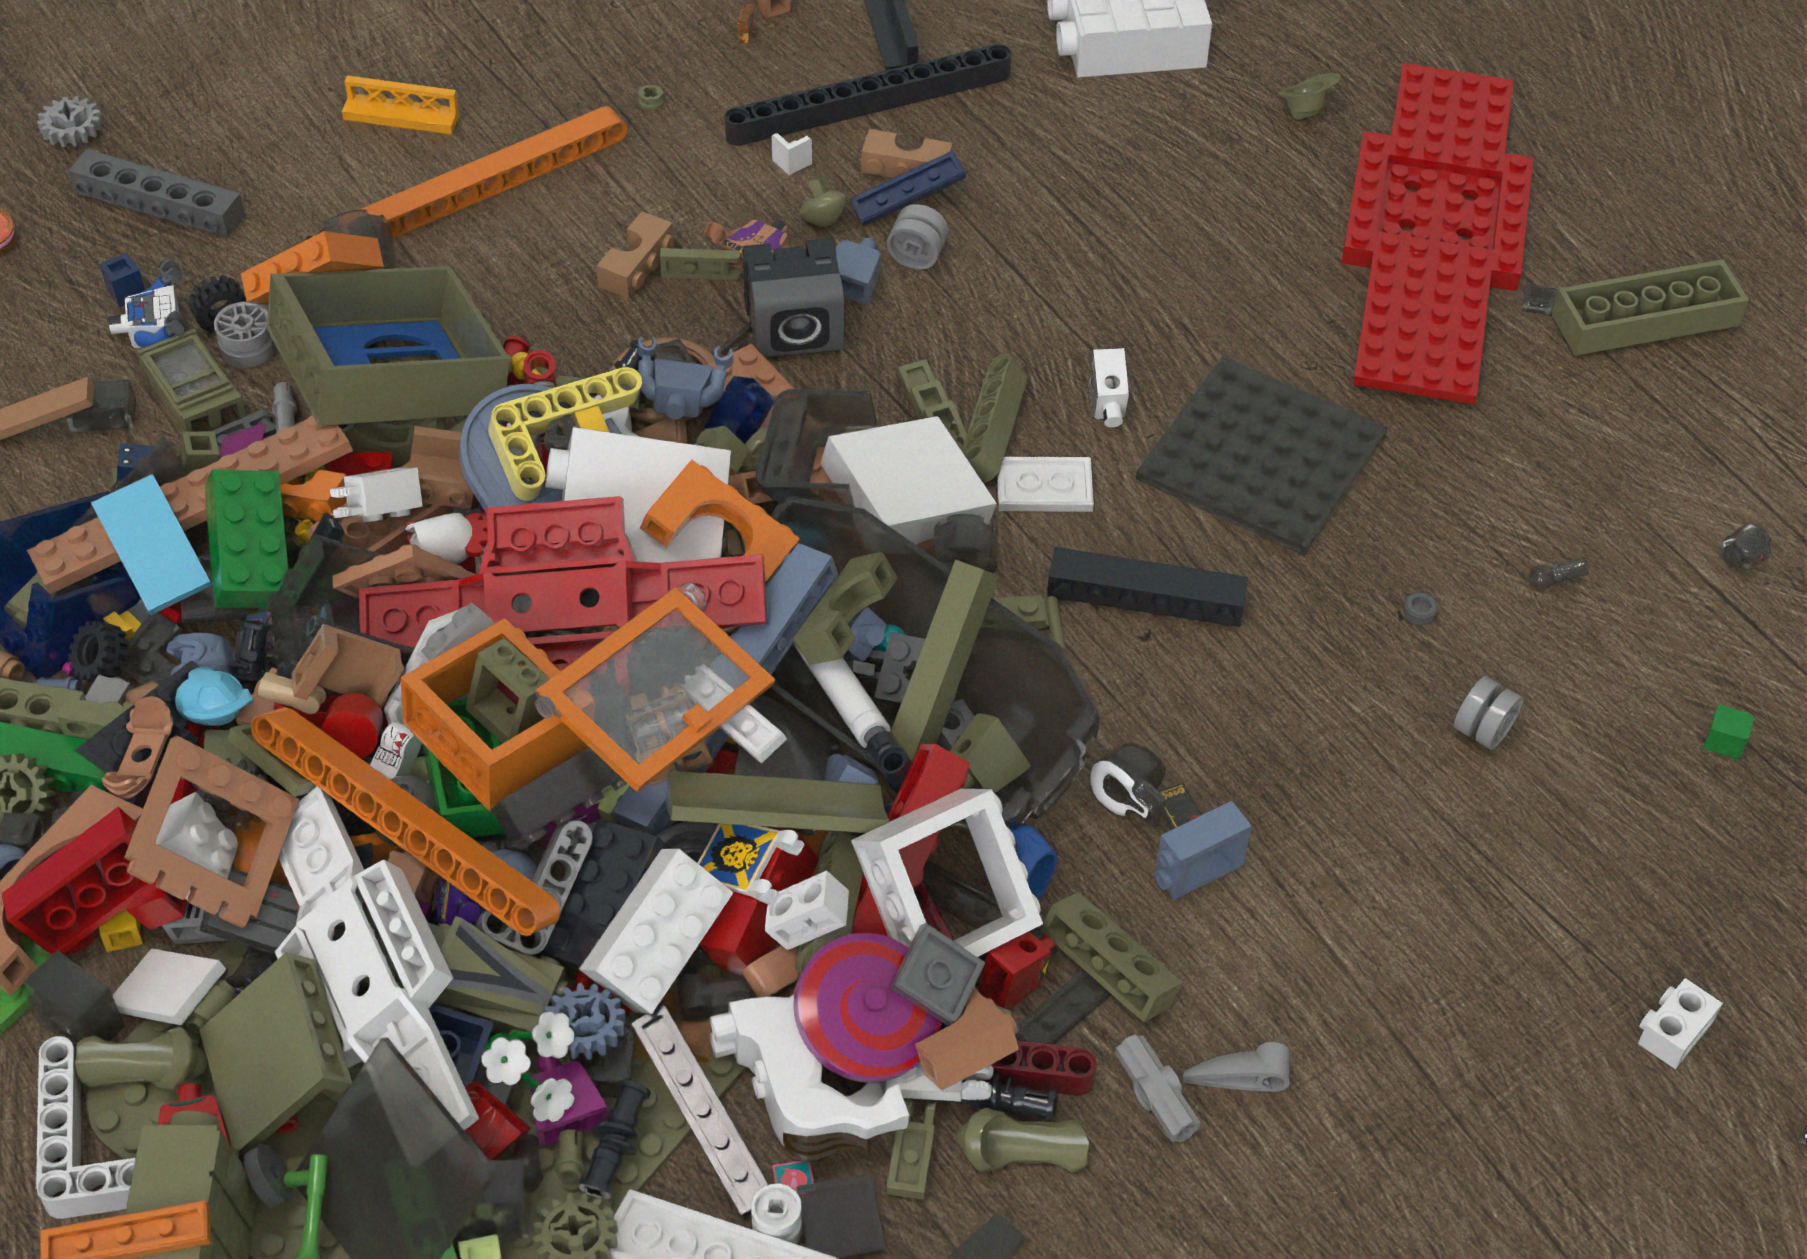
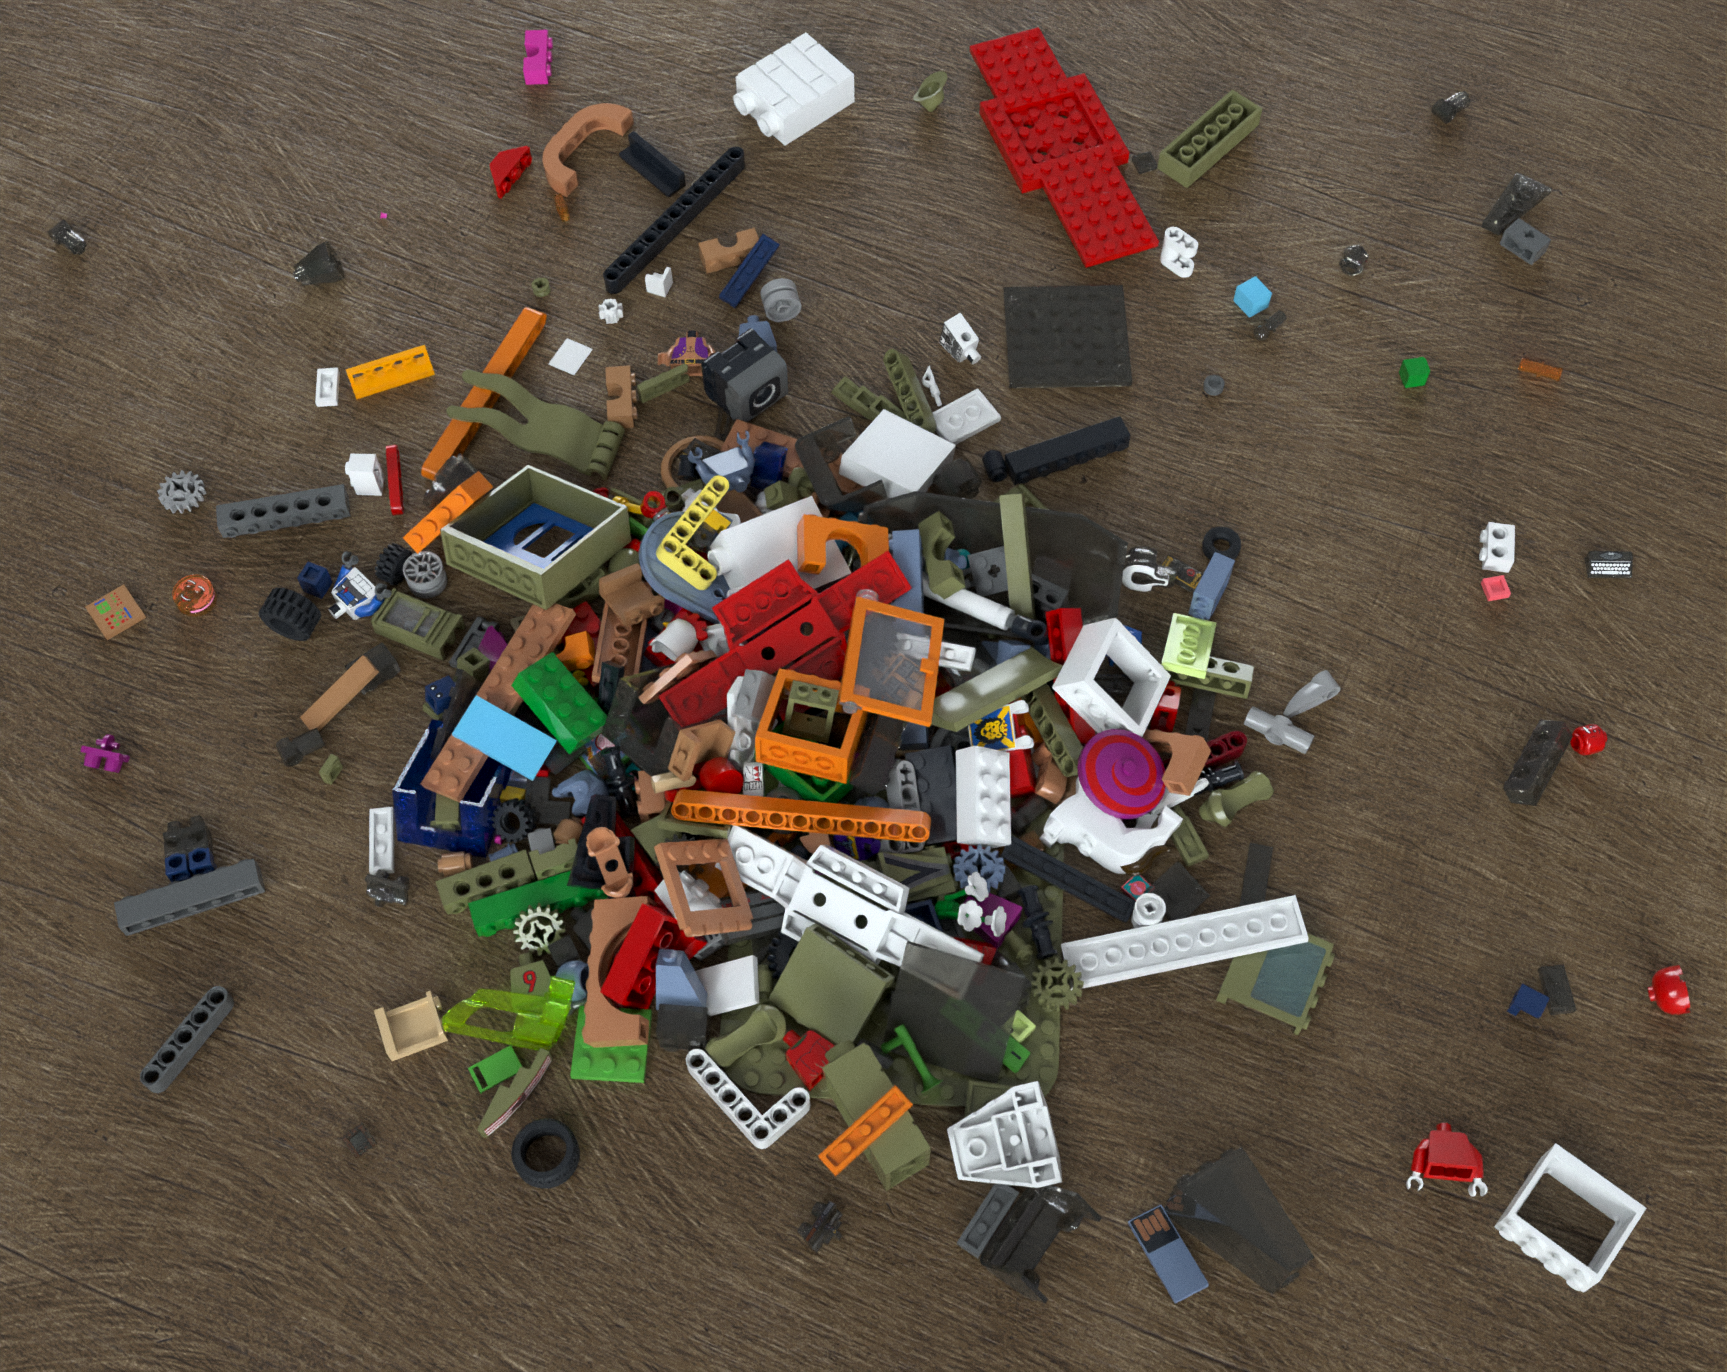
camera: 30 degrees left, 10 degrees up
(57, 297) = (289, 614): none -> black tyre
(102, 937) = (677, 980): none -> sand blue slope
(211, 697) = (626, 808): medium azure helmet -> none
(272, 195) = (365, 474): none -> white brick
(284, 406) = (490, 609): light grey pin -> none
(305, 216) = (394, 480): none -> red beam
(319, 90) = (327, 387): none -> white plate
(379, 493) = (620, 632): white hinge -> none
(529, 254) = (550, 427): none -> olive flag
(621, 187) = (570, 356): none -> white sticker
(706, 157) = (611, 311): none -> white gear
(807, 910) = (1057, 743): white brick -> none
(826, 206) = (708, 307): olive piece -> none
(937, 975) = (1147, 735): flat silver tile -> none
(991, 752) = (1070, 593): olive torso -> none
(1034, 424) = (932, 385): none -> white hand
(1035, 557) = (995, 465): none -> black brick
(1110, 906) = (1188, 645): none -> yellowish green tile
(1275, 793) = (1221, 533): none -> black tyre
(1488, 712) = (1295, 427): light grey wheel -> none
(1490, 417) = (1175, 250): none -> white connector
(1559, 525) = (1252, 296): none -> medium azure piece
(1634, 1076) = (1495, 588): none -> coral plate

